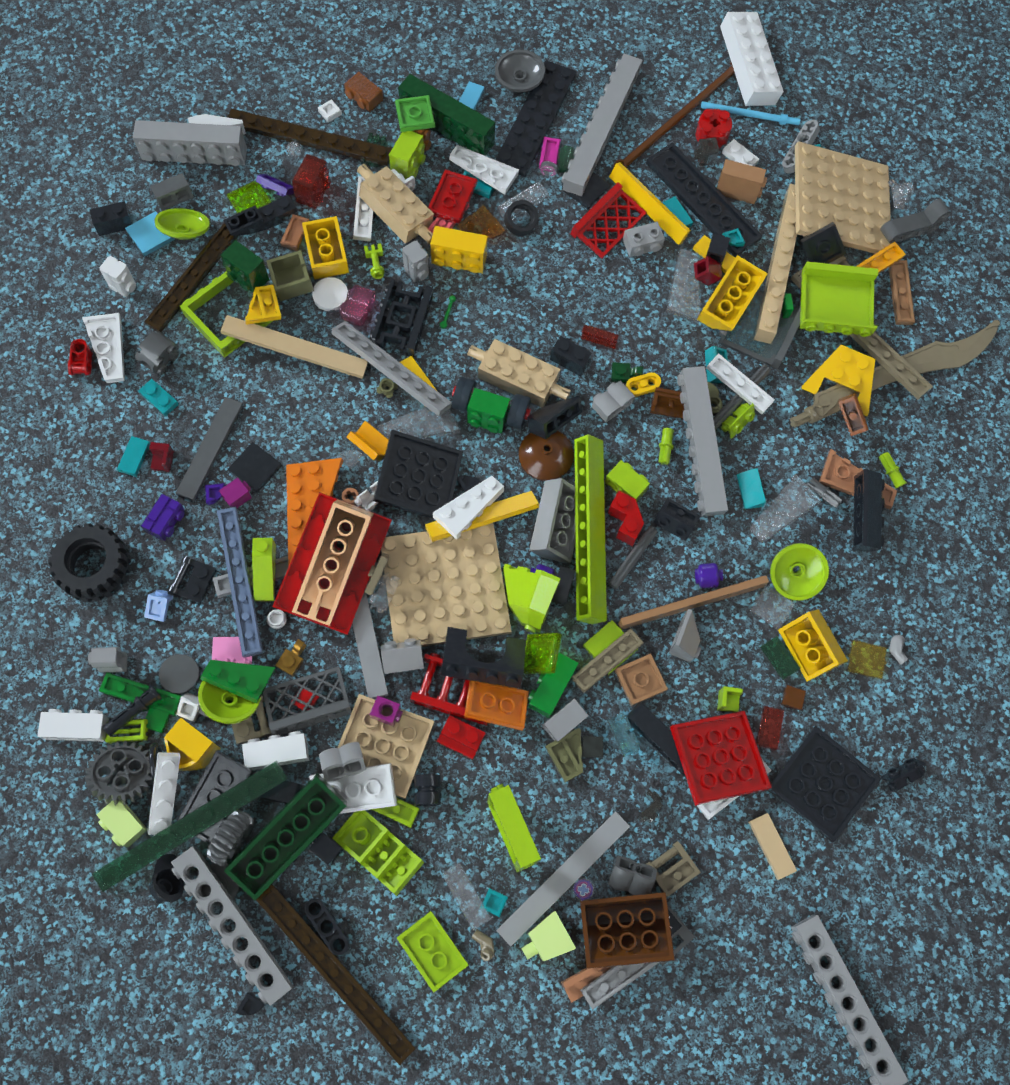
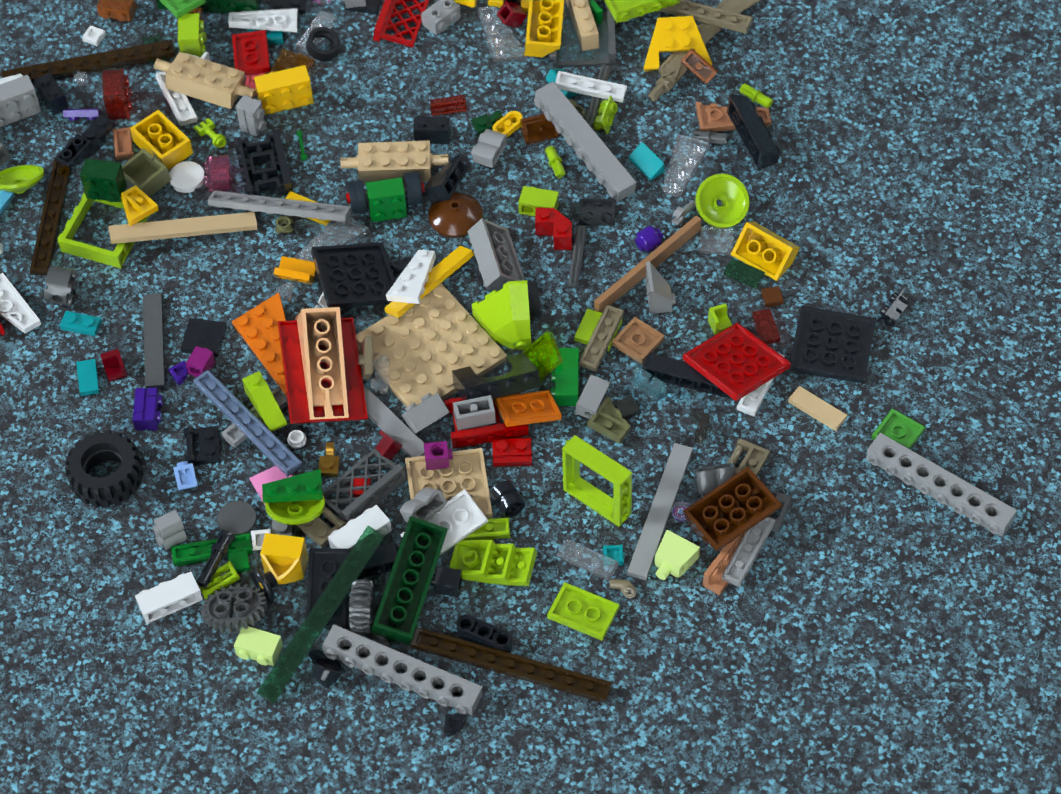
camera: 20 degrees left, 15 degrees down
(163, 792) = (283, 598): white plate -> none
(248, 196) = (61, 134): clear neon green tile -> none
(259, 152) = (51, 93): none -> black brick
(351, 672) = (388, 446): none -> dark red panel
(441, 686) = (474, 413): none -> light grey brick
(590, 530) = (528, 249): lime brick -> none
(754, 562) = (681, 212): none -> light grey bar
(838, 915) = (900, 429): none -> bright green tile
(867, 659) = (816, 242): clear yellow piece -> none
(896, 647) = (834, 223): light grey arm -> none

